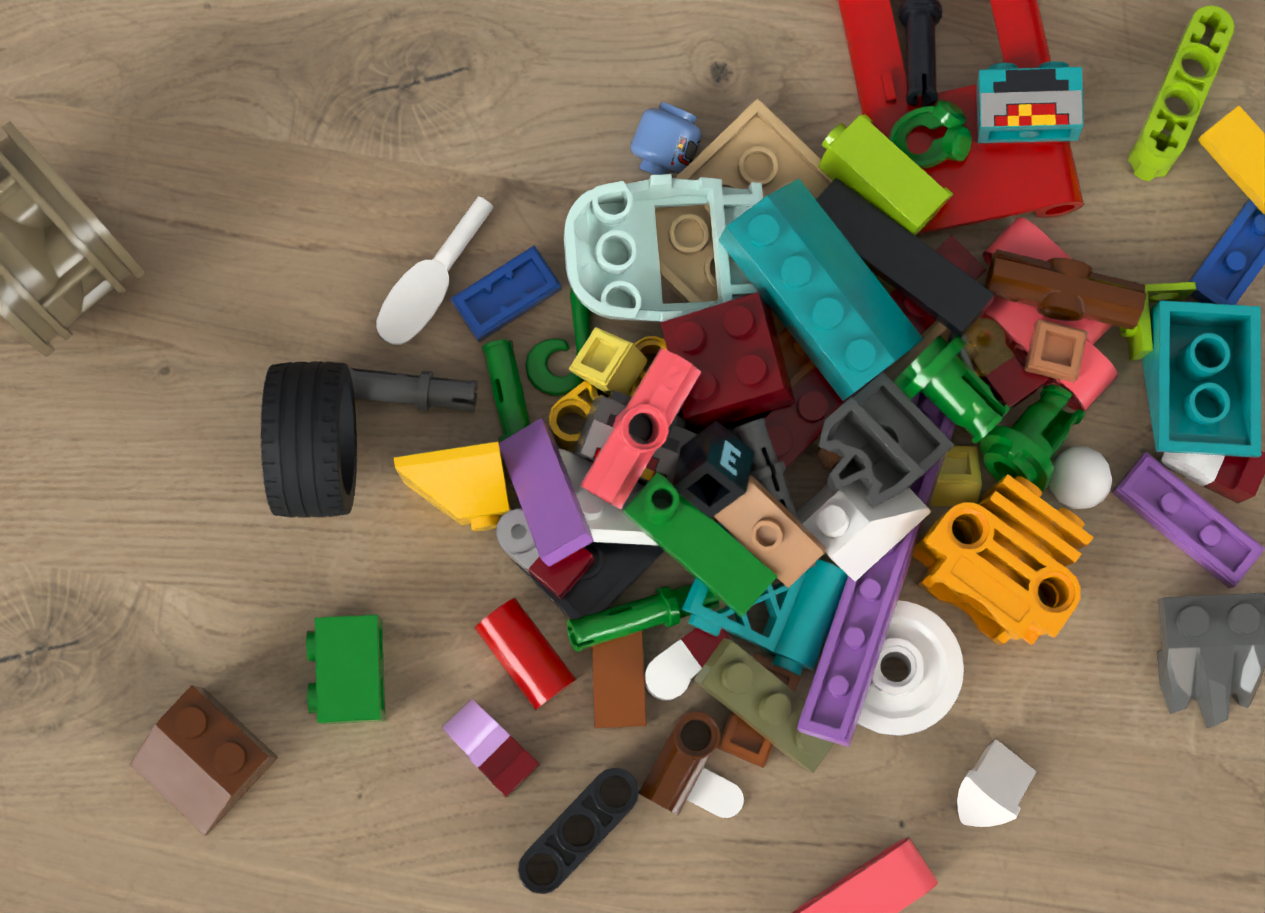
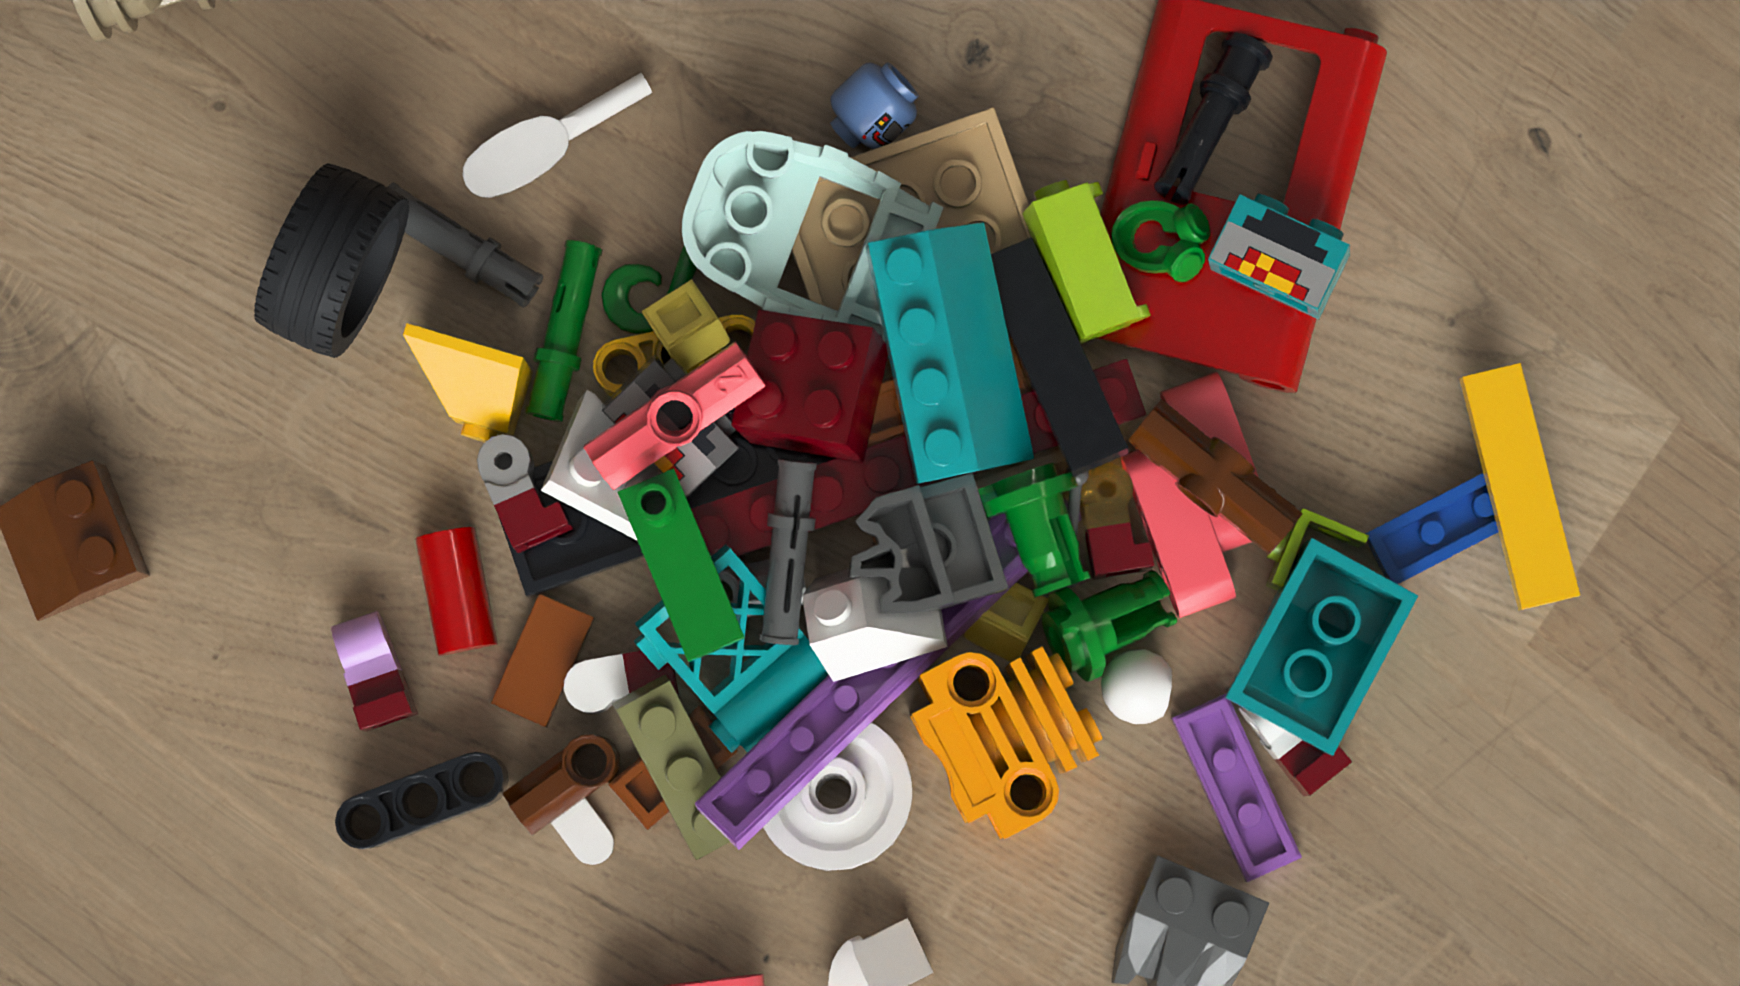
camera: 30 degrees right, 5 degrees up
(347, 669) = (262, 519): green brick -> none
(506, 293) = (620, 194): blue plate -> none
(545, 492) = (549, 433): medium lavender tile -> none
(638, 615) = (582, 606): green pin -> none
(713, 469) = (730, 494): black brick -> none
(771, 533) = (760, 586): plate -> none
(1056, 351) = (1174, 538): nougat tile -> none
(1155, 151) = (1478, 312): lime beam -> none

